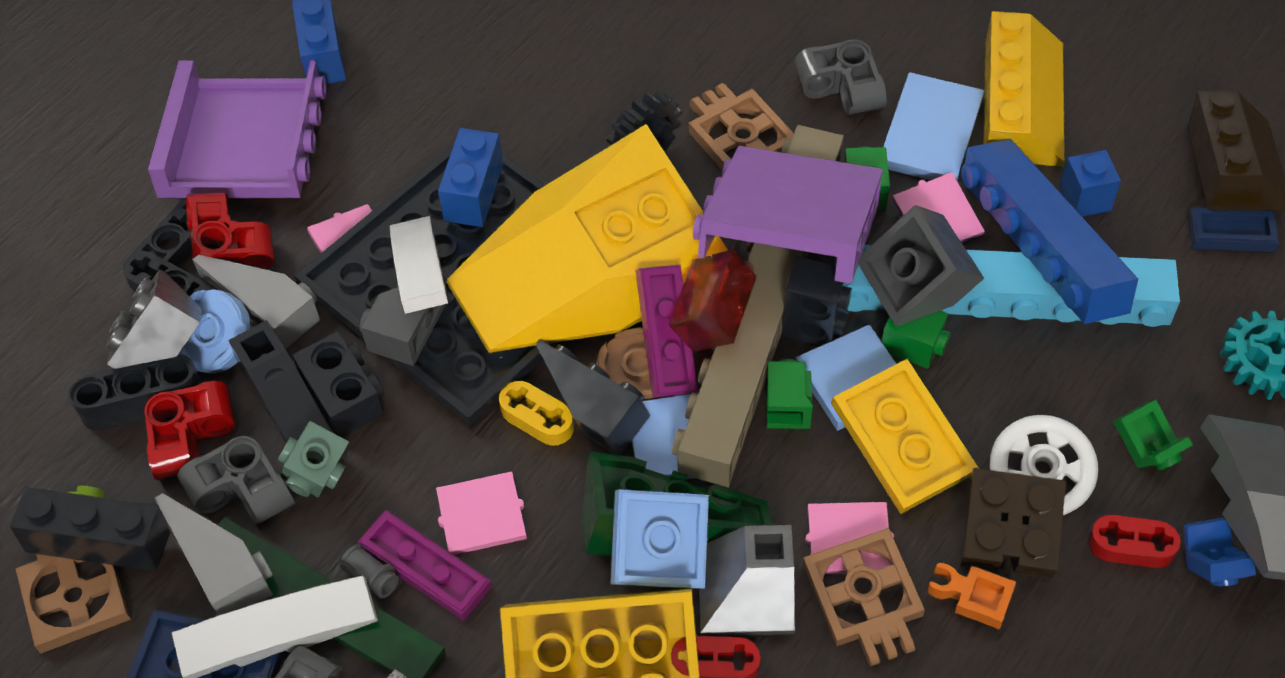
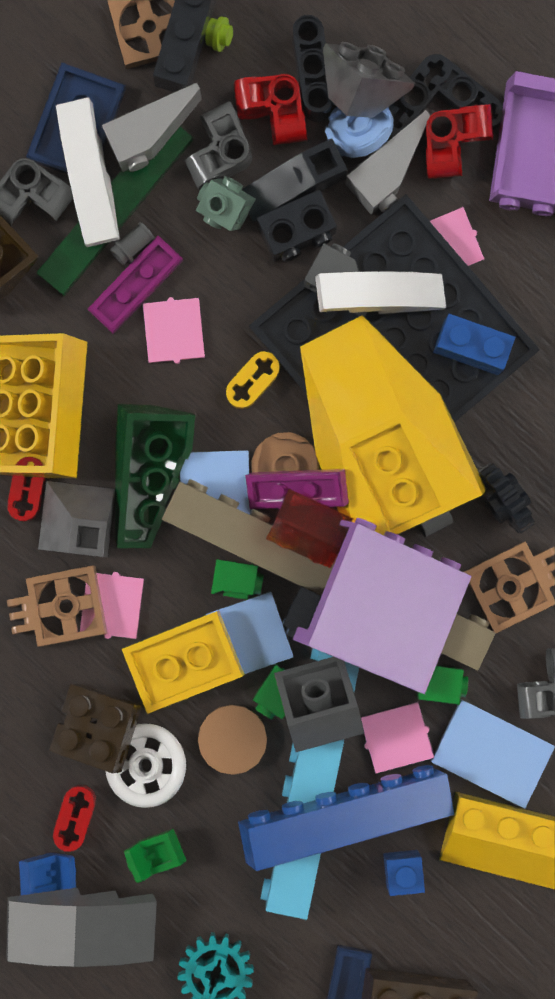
camera: 90 degrees right, 30 degrees up
(603, 409) = (245, 423): black slope -> none
(659, 539) = (108, 457): light blue tile -> none
(980, 595) = (44, 690): orange plate -> none
(984, 379) = (232, 739): none -> medium nougat tile

